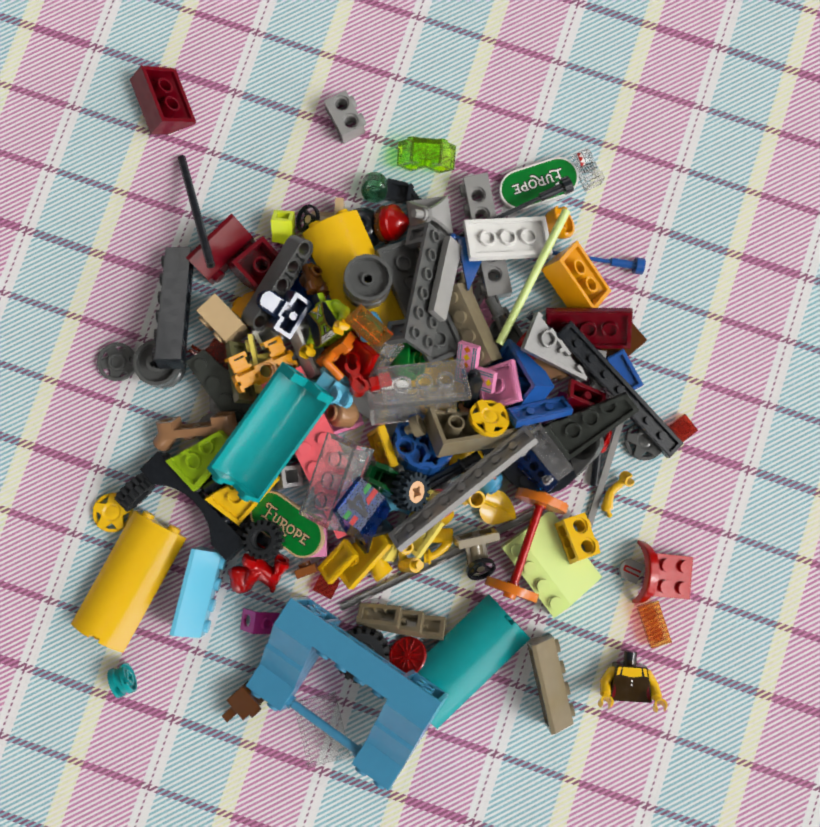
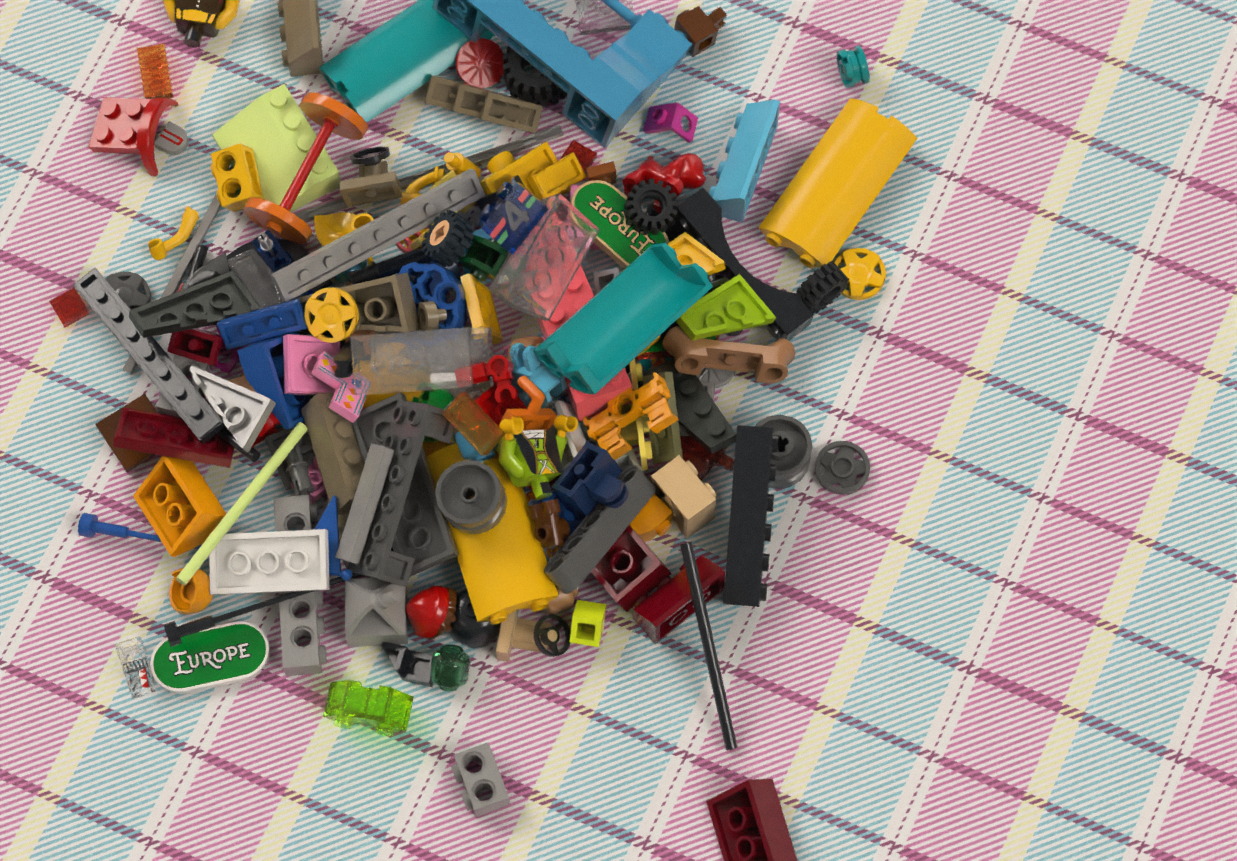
camera: 175 degrees left, 15 degrees down
(623, 365) = (135, 384): blue tile -> none

